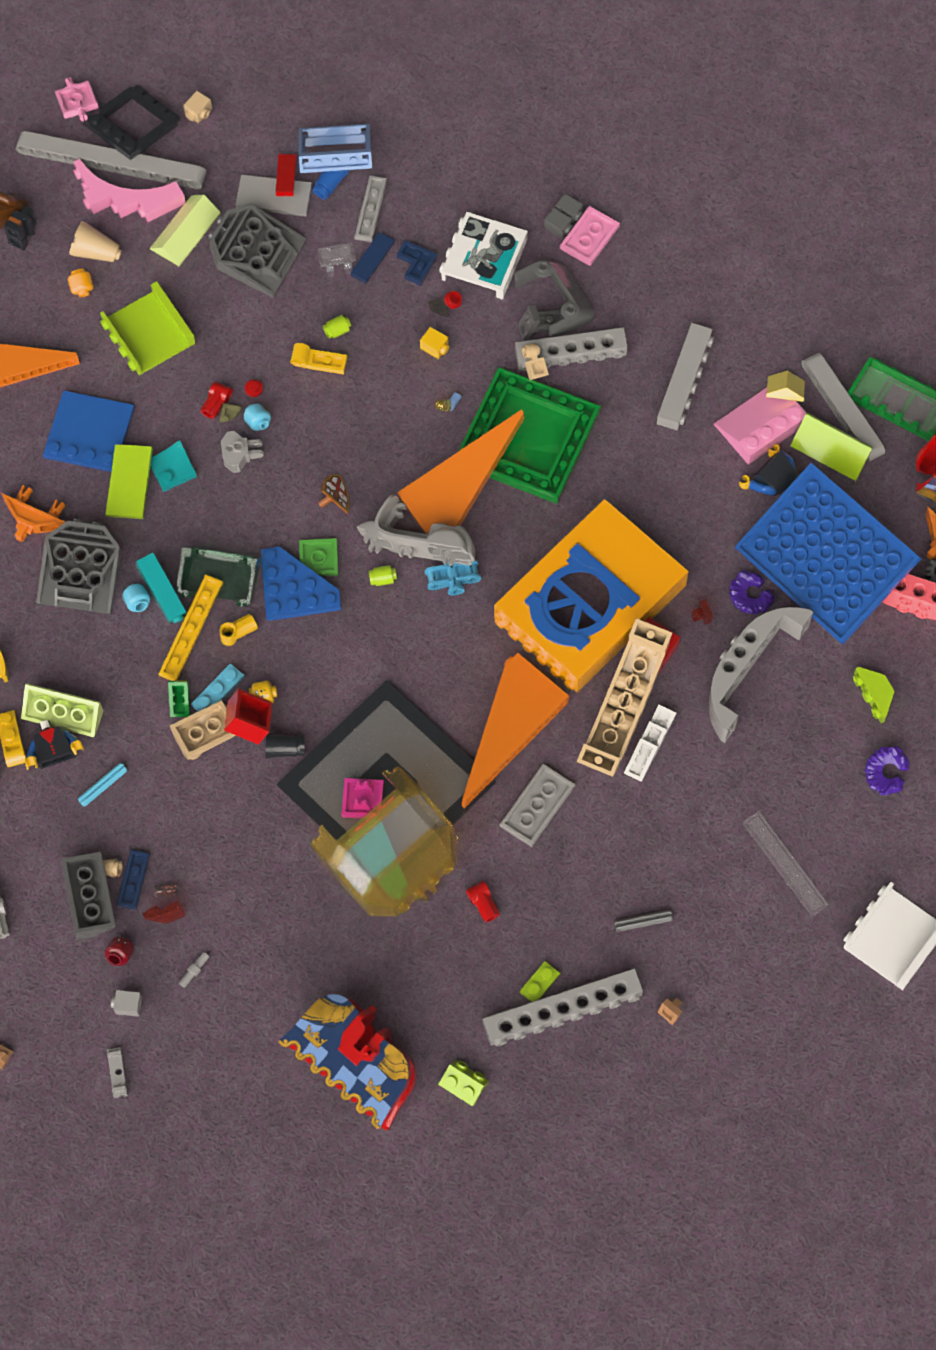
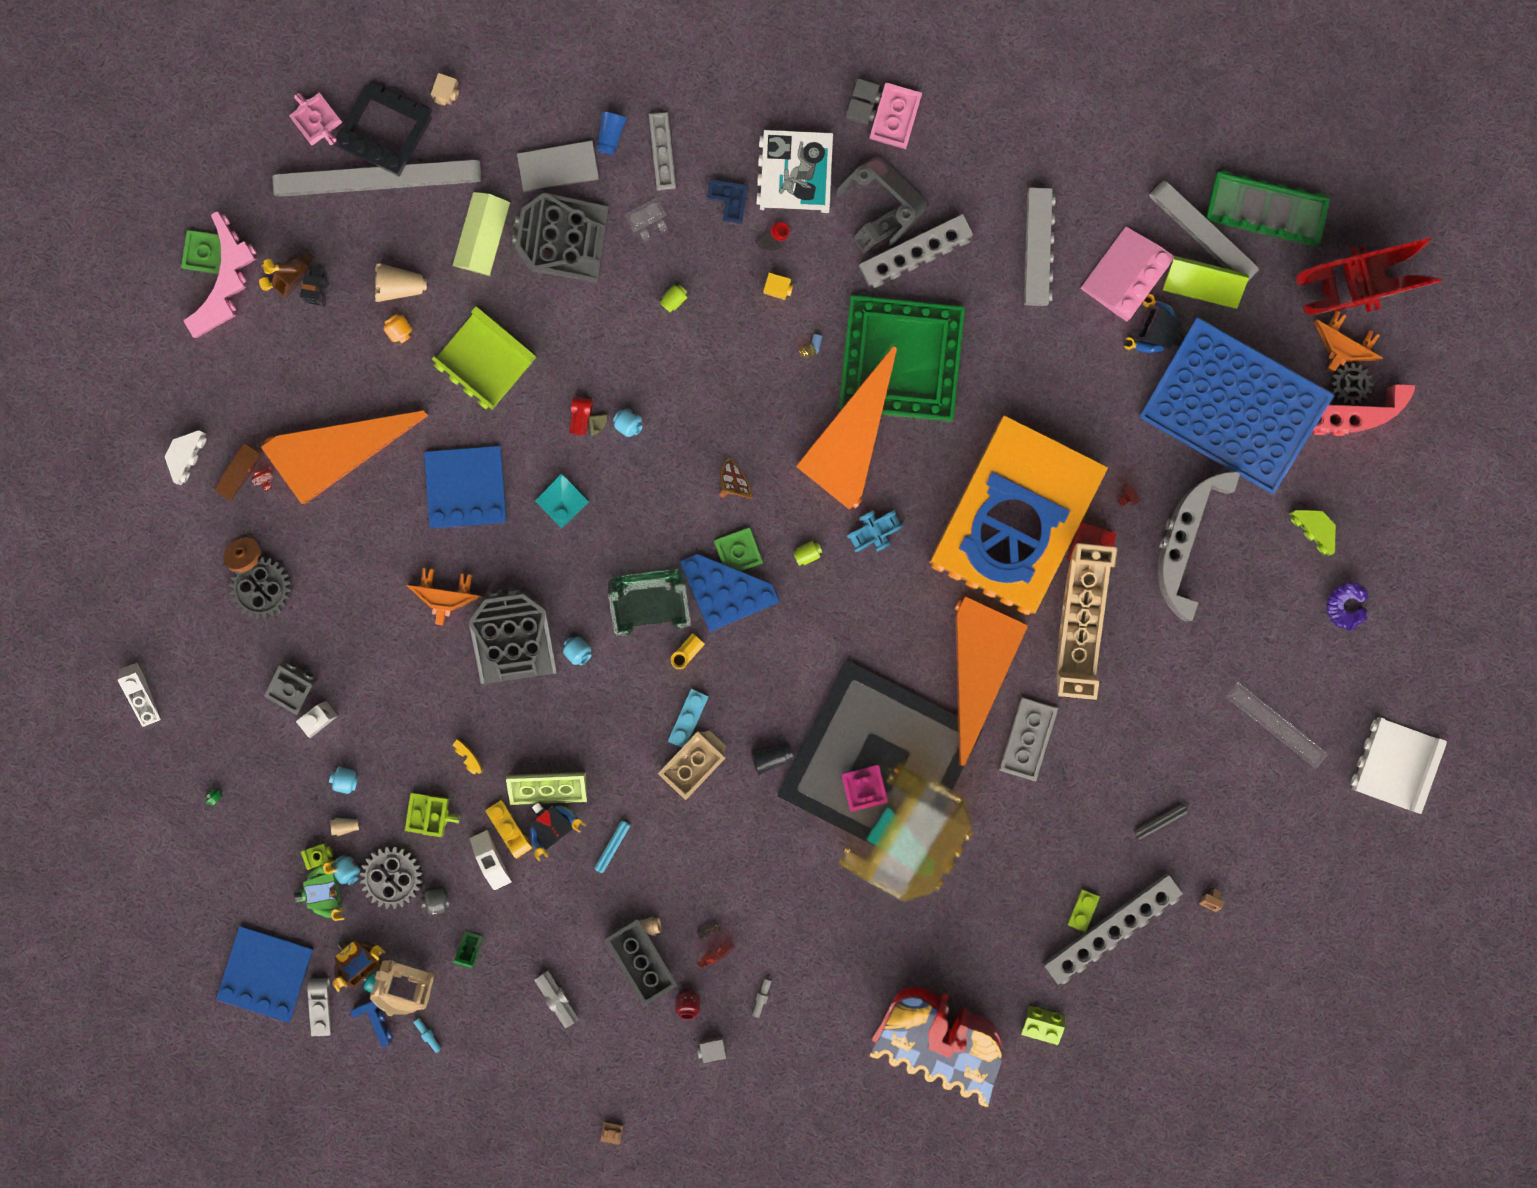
camera: 15 degrees left, 20 degrees up
(116, 1063) = (729, 1122): light grey piece -> none
(129, 481) = (526, 531): lime tile -> none
(133, 879) = (674, 929): dark blue tile -> none
(149, 202) = (436, 215): bright pink arch -> none
(160, 588) = (597, 635): teal slope -> none
(179, 698) = (656, 741): green slope -> none
(190, 628) = (640, 664): yellow tile -> none
(236, 451) = (624, 464): light grey hinge -> none
(248, 716) = (730, 743): red piece -> none
(253, 388) = (612, 390): red plate -> none
(264, 690) = (733, 711): yellow head -> none
(286, 175) = (563, 141): red tile -> none
(318, 360) = (667, 340): yellow plate -> none
(335, 159) = (614, 119): medium blue window -> none
(372, 257) = (682, 207): dark blue tile -> none
(441, 544) = (857, 508): light grey piece -> none
(481, 898) = (1004, 847): red piece -> none
(536, 366) = (890, 286): tan plate -> none
(650, 743) = (1116, 645): white slope -> none
(742, 601) = (1161, 471): dark purple piece -> none
(785, 386) = (1142, 229): light yellow slope -> none

